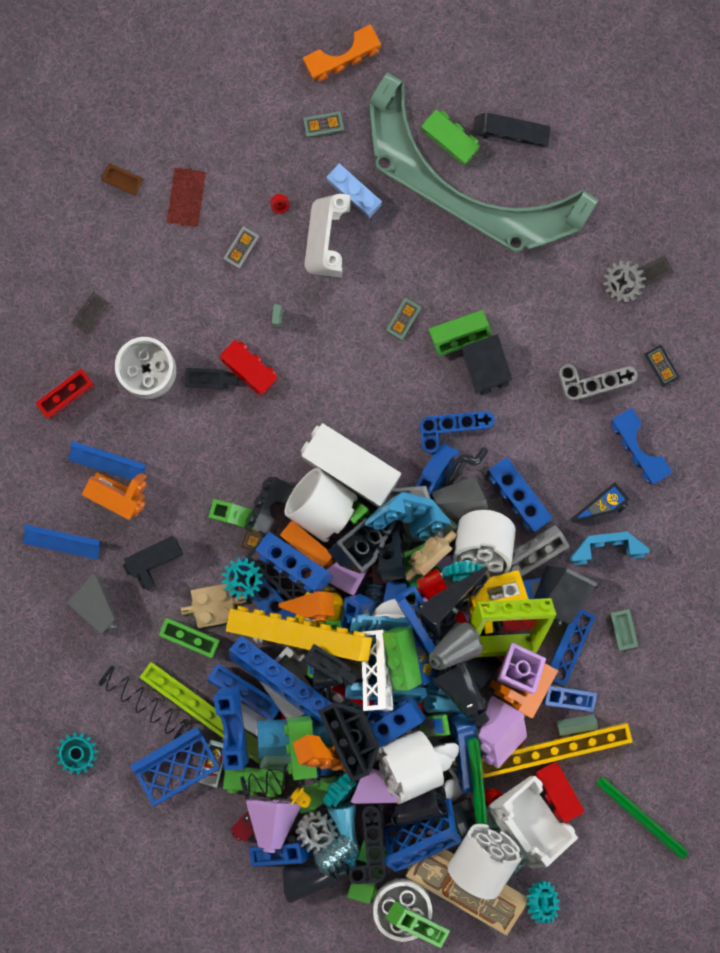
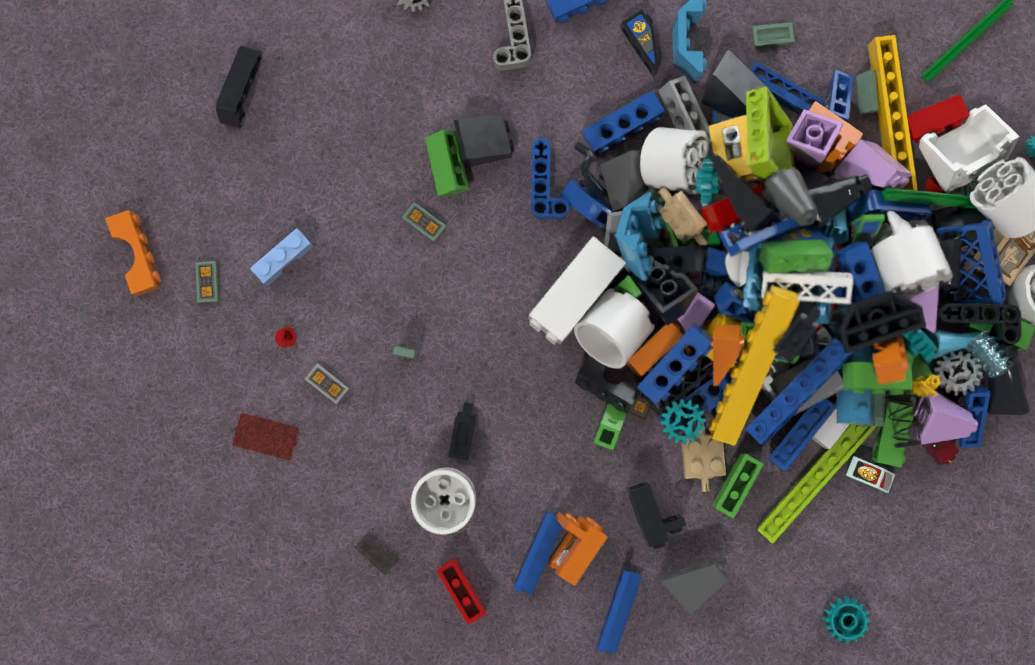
camera: 85 degrees left, 0 degrees up
(104, 679) = (836, 507): black piece -> none
(122, 179) = (237, 502): reddish brown tile -> none
(171, 750) = (858, 526): blue fence -> none
(229, 709) = (859, 449): blue arch -> none
(248, 367) = (456, 390): red brick -> none
(318, 257) = (344, 302): white windscreen -> none
(450, 137) = (238, 150): bright green brick -> none
(502, 224) = (236, 209): sand green panel -> none

